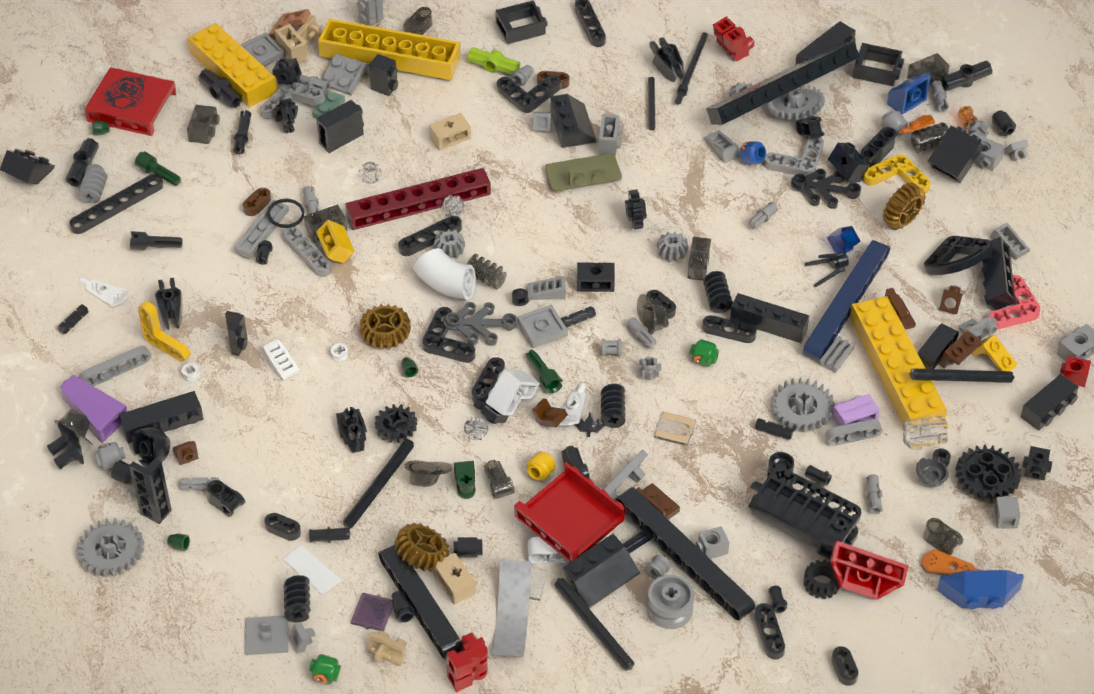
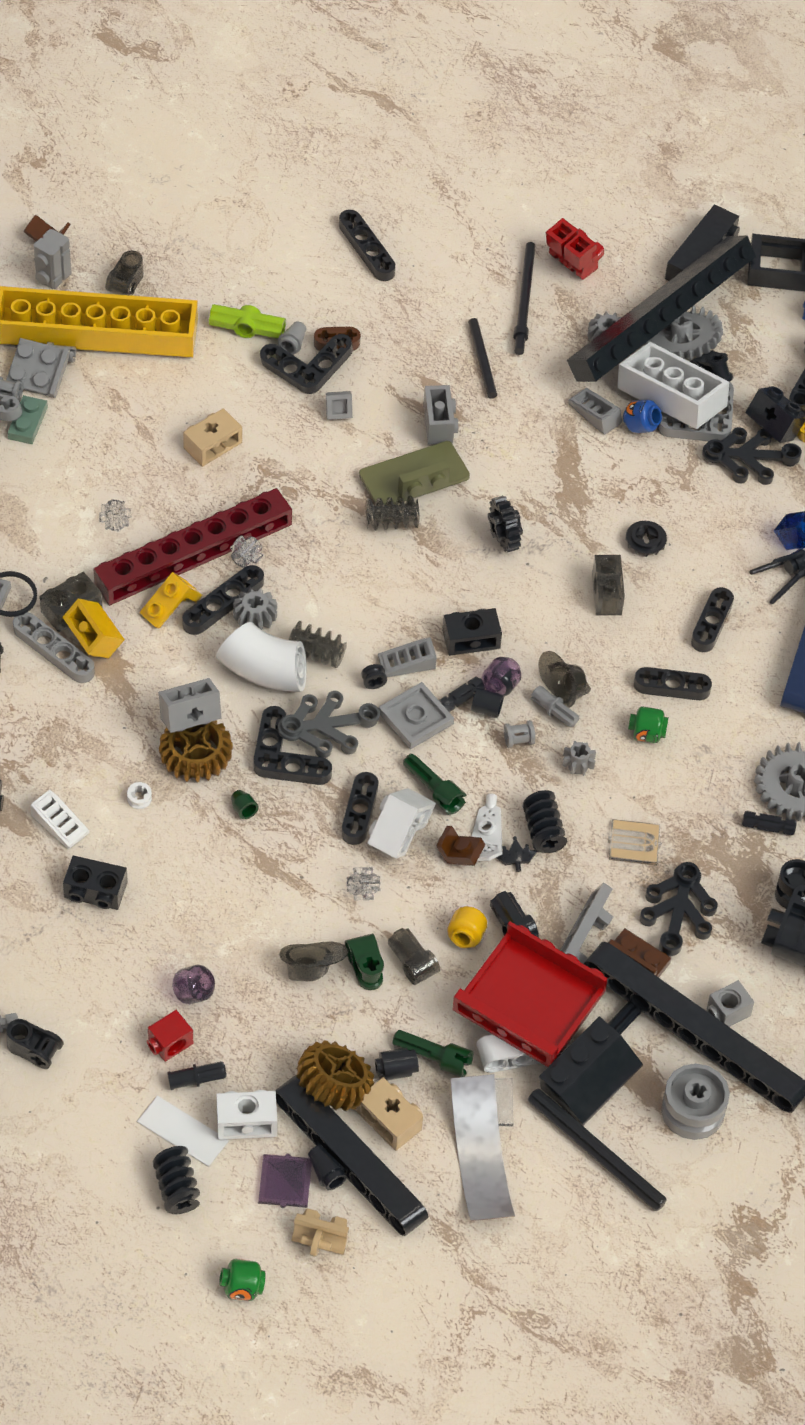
camera: 15 degrees left, 5 degrees up
(266, 635) = (144, 1240): light grey piece -> none
(284, 524) = (126, 1072): black beam -> none
(293, 402) = (97, 877): none -> black brick
(301, 637) = (196, 1237): light grey tile -> none
(311, 201) = (41, 570): light grey pin -> none
(317, 506) = (170, 1036): none -> red brick
(340, 126) = (56, 450): black brick -> none
(342, 475) = (193, 984): none -> head
(352, 429) = (188, 910): black connector -> none
(356, 564) = (237, 1125): none -> white brick
(378, 483) = (245, 987): black axle -> none
(383, 75) = (98, 363): black brick -> none
(383, 296) = (189, 705): none -> light grey brick
(392, 228) = (168, 598): none -> yellow bracket
(395, 423) = (261, 897): black gear -> none
(469, 663) = (447, 1239): red hips -> none
(491, 414) = (379, 860): black plate -> none
(505, 548) = (450, 1057): none -> dark green piece
(517, 12) = (279, 235): black window -> none
(561, 194) = (392, 512): none -> clear smoke piece
(571, 121) = (378, 400): black slope -> none
(594, 324) = (487, 702): none -> black beam
(609, 308) = (502, 675): none -> clear purple head
(658, 567) = (664, 1053): light grey wheel -> none
(663, 301) = (572, 655): black beam -> none
(667, 59) = (491, 290): black hinge -> none
(672, 246) = (566, 571): light grey gear -> none
(705, 456) = (679, 904): none -> black plant
(717, 292) = (646, 631): black piece -> none
(730, 227) = (655, 534): none -> black gear
(763, 215) = (678, 507): light grey axle -> none
(770, 284) = (711, 610): none -> black beam
(770, 317) = (725, 660): black brick -> none
(778, 134) = (673, 384): none -> white brick

